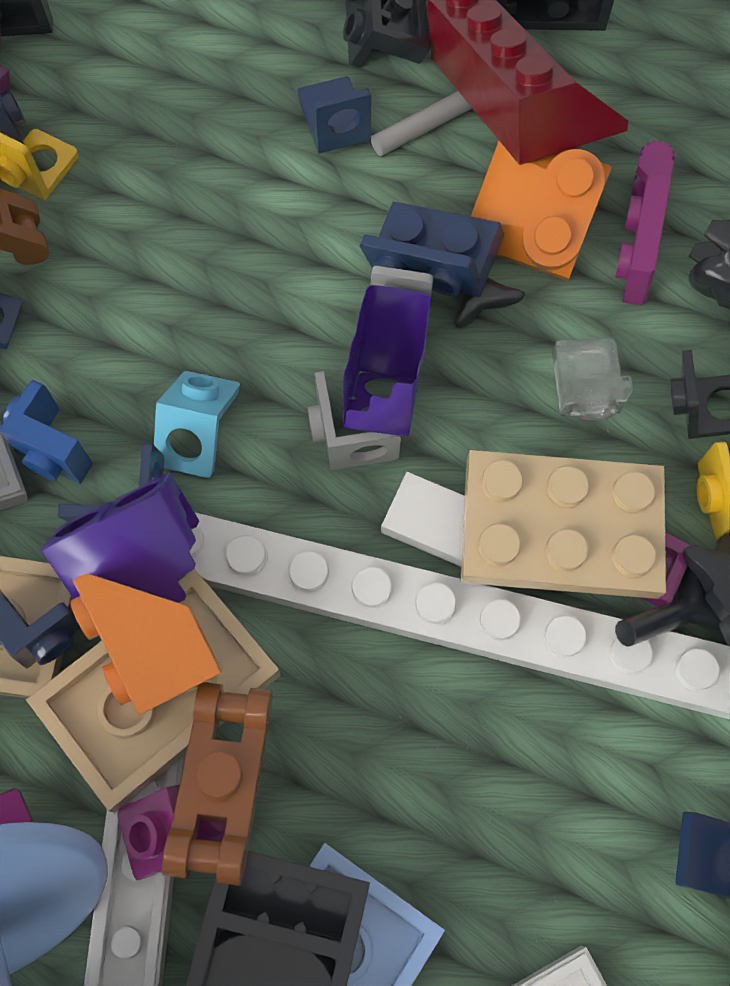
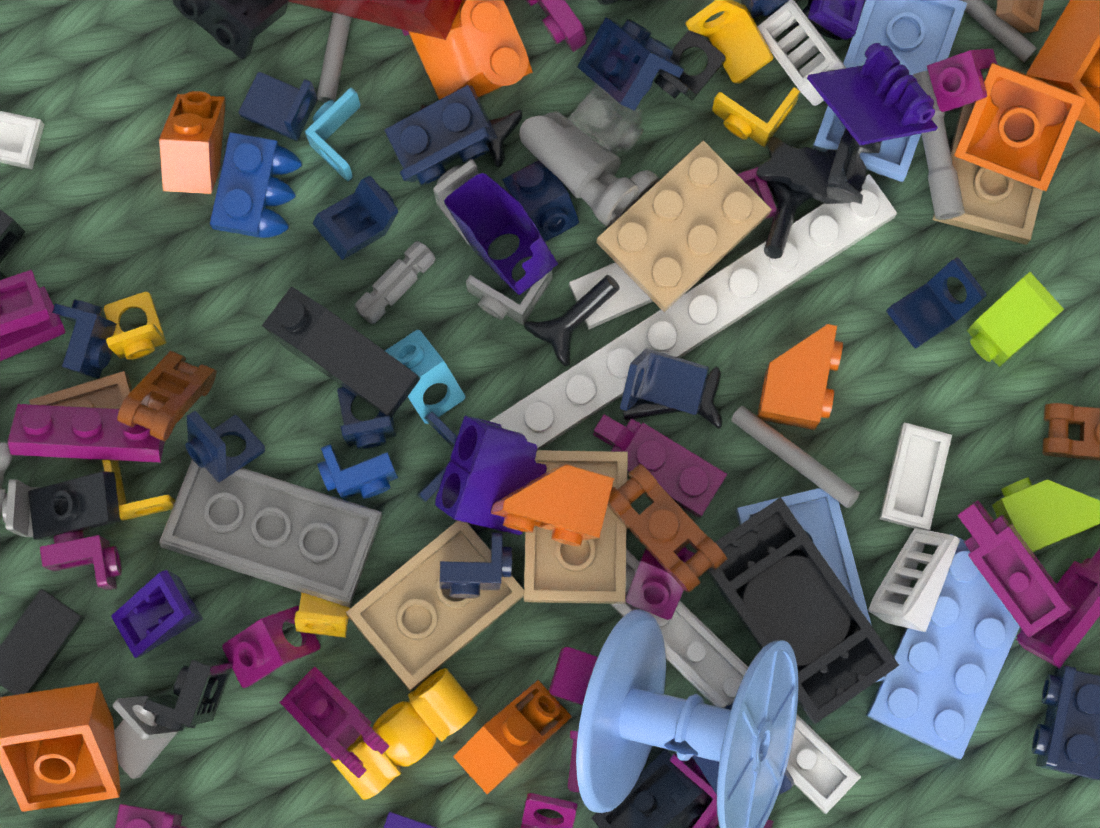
camera: 45 degrees left, 10 degrees up
(94, 415) = (363, 433): none -> dark blue bracket
(143, 322) = (340, 352): none -> black slope
(232, 73) = (192, 143): none -> orange slope
(244, 151) = (249, 187): none -> blue plate
(264, 326) = (394, 282): none -> light grey axle
(290, 246) = (357, 218): none -> dark blue bracket
(308, 723) = (677, 470): none -> magenta hinge
(353, 503) = (560, 329): none -> black piece
(357, 158) = (326, 122): none -> medium azure bracket
(387, 639) = (665, 382): none -> dark blue bracket
(406, 697) = (707, 410): none -> black piece
(437, 863) = (795, 457): none -> light grey bar
(459, 384) = (543, 199): none -> dark blue bracket
(522, 783) = (797, 381): none -> orange slope
(528, 385) = (584, 166): none -> light grey piece
(661, 332) = (626, 61): none -> dark blue bracket

